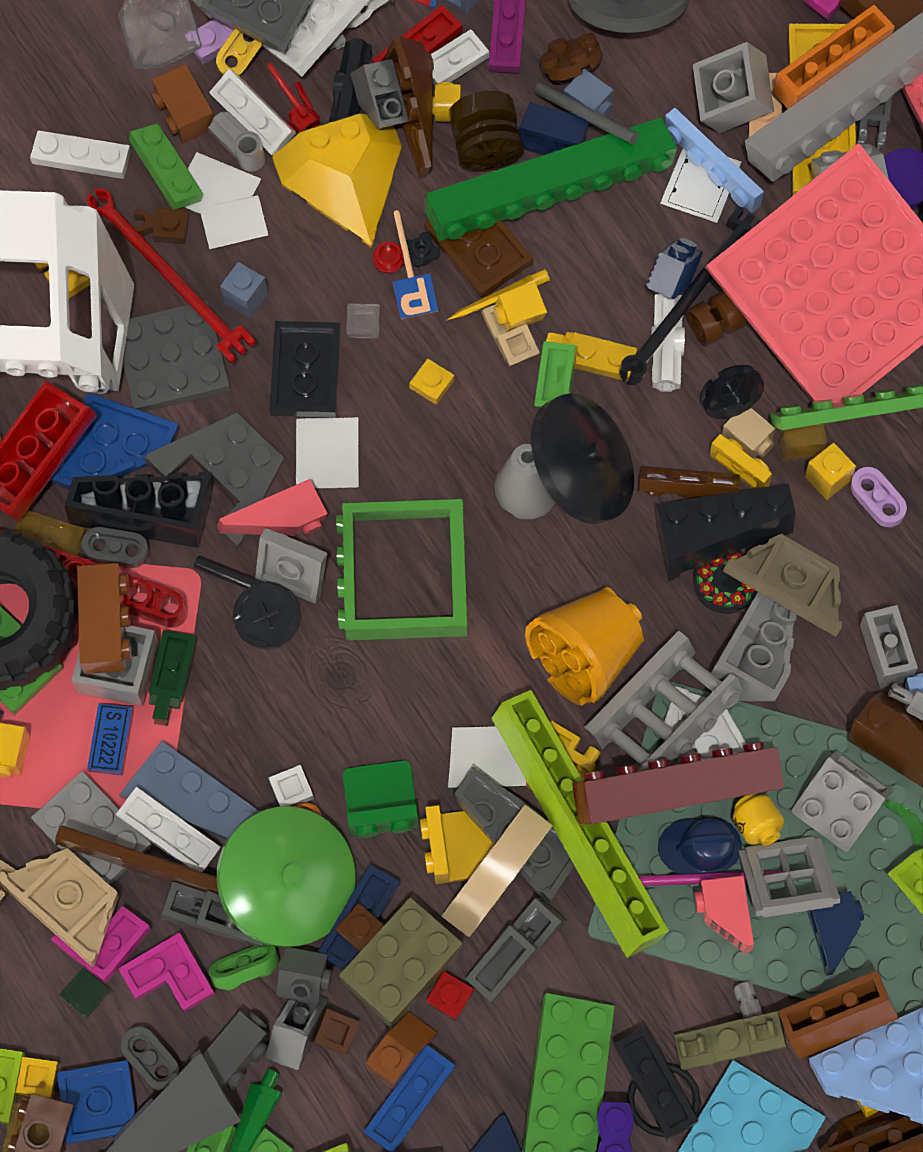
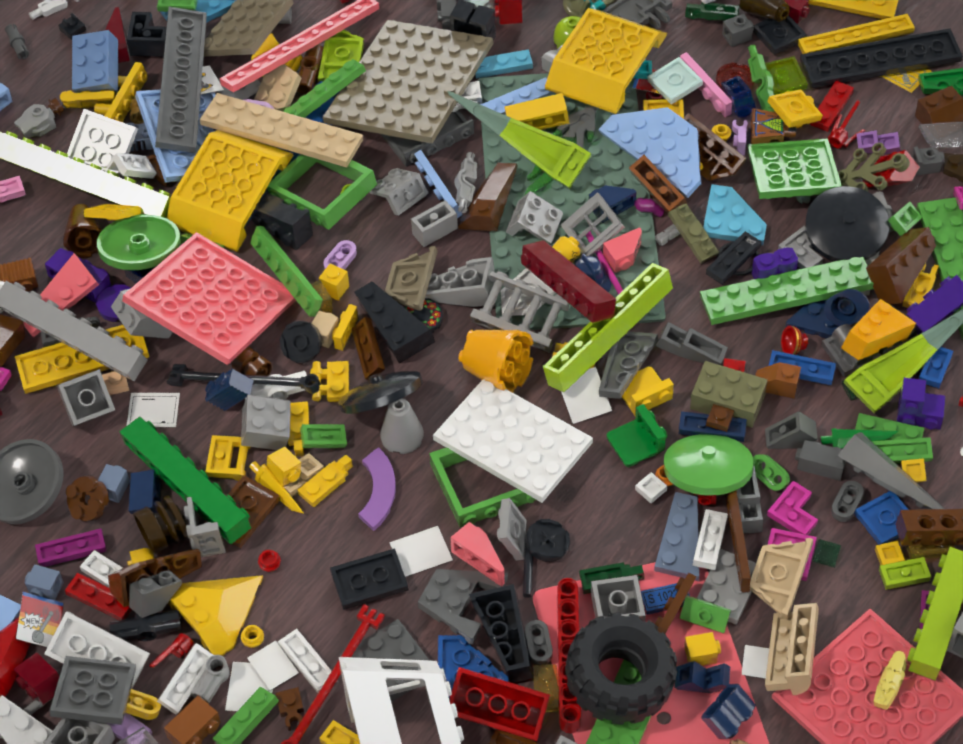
camera: 110 degrees left, 15 degrees down
(57, 777) = (705, 614): none -> bright green plate
(81, 734) = (673, 604): none -> reddish brown plate
(103, 618) = (599, 601): dark orange brick -> none
(217, 262) = (305, 659): none -> white tile
(244, 290) = (326, 632): sand blue brick -> none
(283, 199) = (250, 631): none -> yellow plate
(303, 975) = (761, 437): dark grey brick -> none
(335, 1031) = (781, 412): reddish brown plate -> none
(363, 321) = (320, 560): clear tile -> none
(415, 294) = (289, 537): piece -> none
(428, 255) = (257, 549): black plate -> none
(432, 381) = (349, 507): yellow plate -> none
(435, 617) = (513, 439): none -> white plate
(446, 434) = (383, 489): none -> medium lavender tile
(454, 166) = (205, 536): none -> light grey bracket
(459, 1108) = (793, 340): none -> red piece
(486, 363) = (325, 481): none -> yellow hinge
(497, 870) = (655, 358): tan slope -> none
(579, 241) = (220, 457): none -> yellow plate
(586, 113) = (126, 480): dark grey bar -> none
(603, 303) = (265, 422): none -> light grey brick
(652, 428) = (337, 380): none -> yellow plate
(714, 161) = (144, 393): light blue plate -> none
(812, 981) = (648, 205): none -> magenta arm
(831, 56) = (51, 346): orange brick -> none

